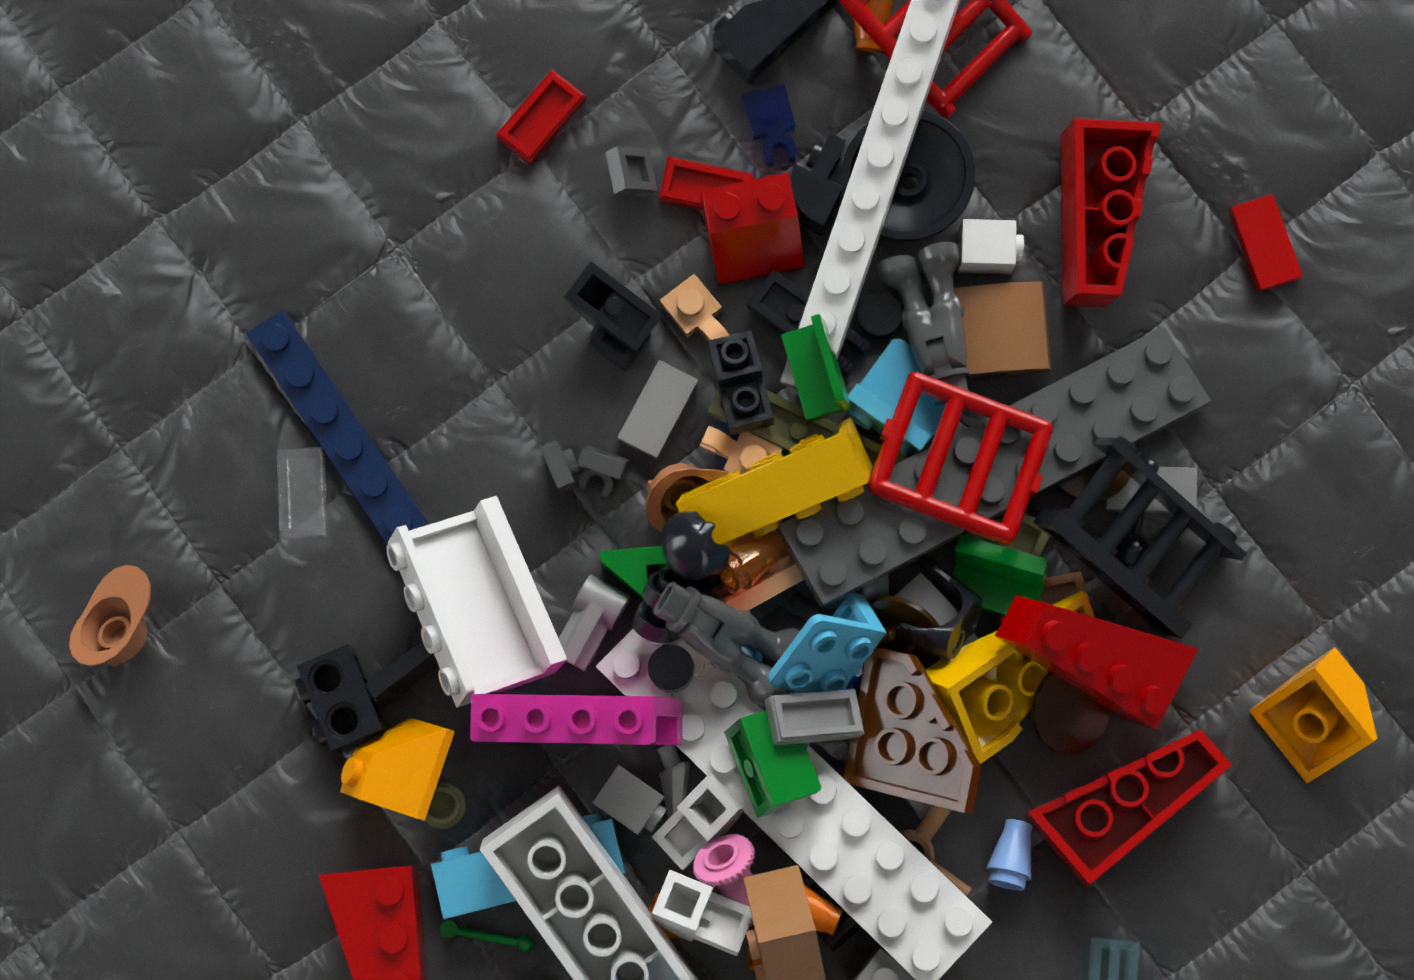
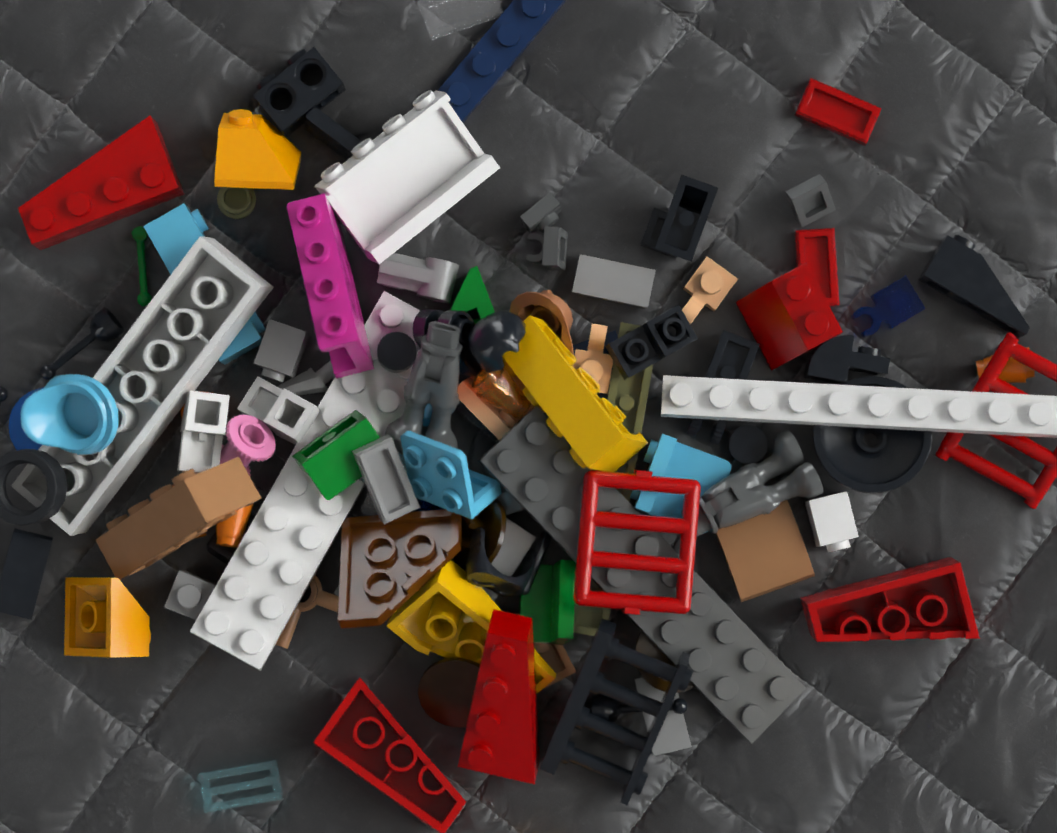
camera: 75 degrees right, 5 degrees up
(816, 370) = (677, 402): green panel -> none
(1012, 856) = (323, 675): light blue cone -> none
(1265, 243) = (905, 757): red tile -> none

